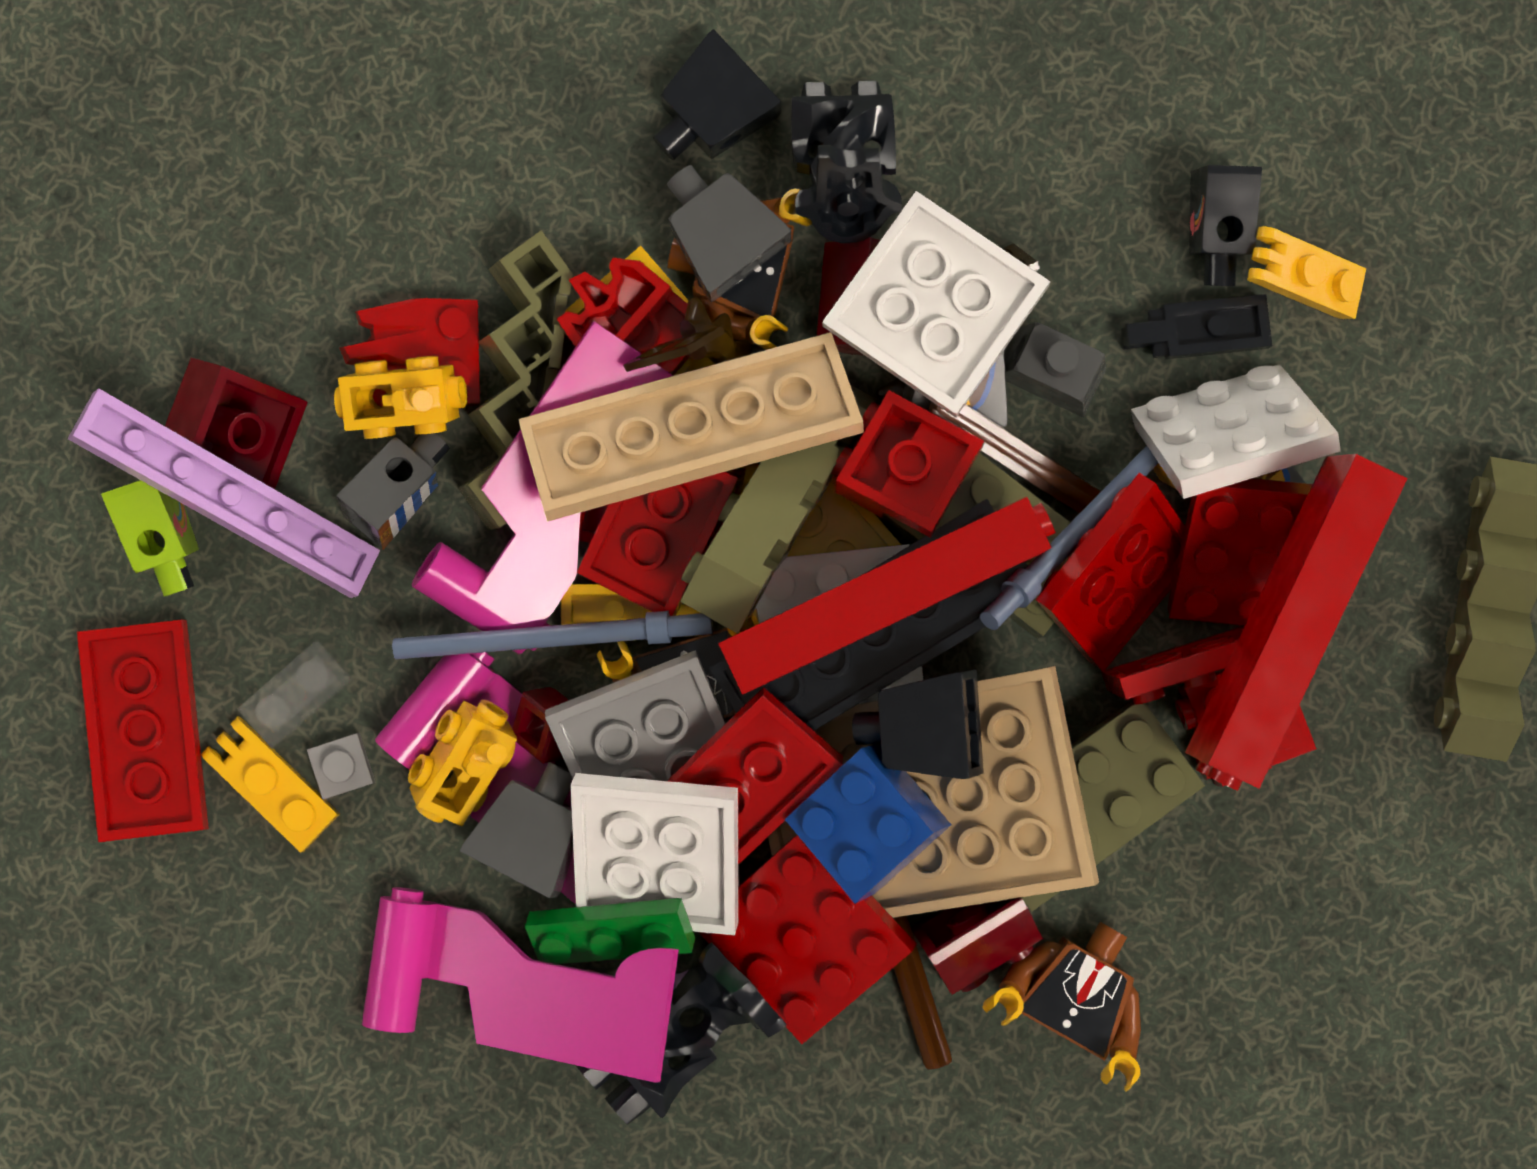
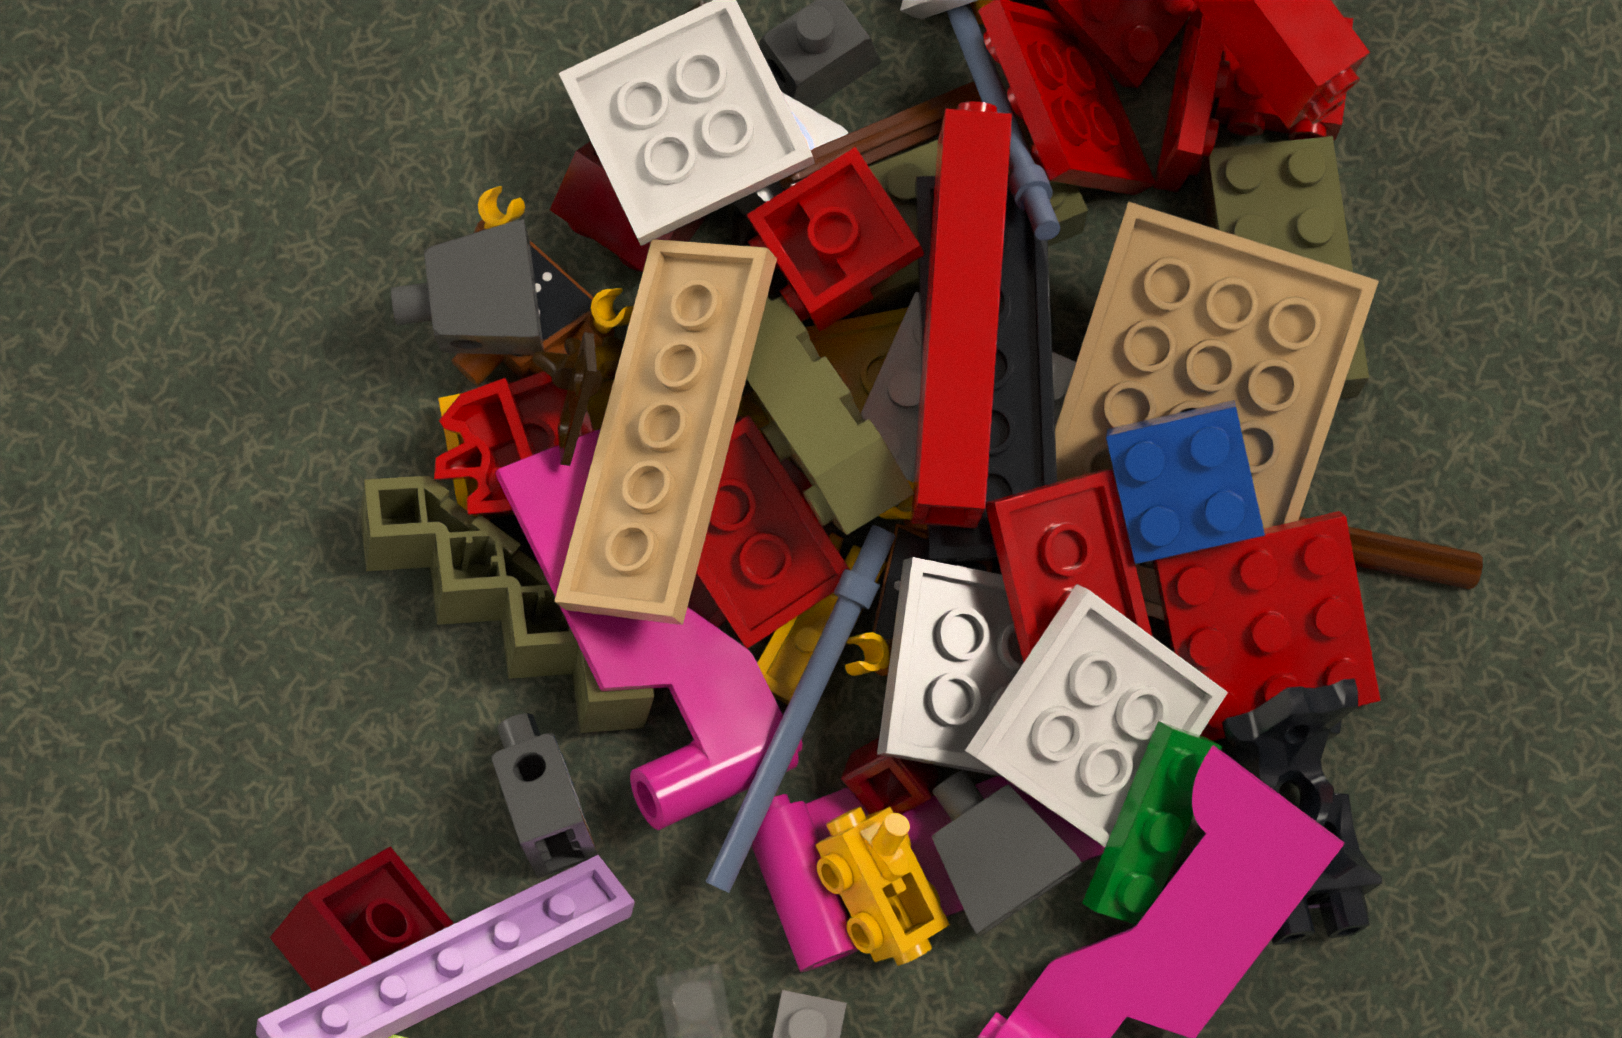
camera: 60 degrees left, 10 degrees down
(415, 396) = (460, 708): yellow brick -> none
(418, 330) = (411, 693): red plate -> none
(714, 101) = (334, 241): black torso -> none
(848, 187) = (512, 139): black hips -> none
(927, 726) = (1118, 362): black torso -> none
(977, 939) = (1366, 452): dark red slope -> none
(1079, 998) = (1485, 385): torso -> none

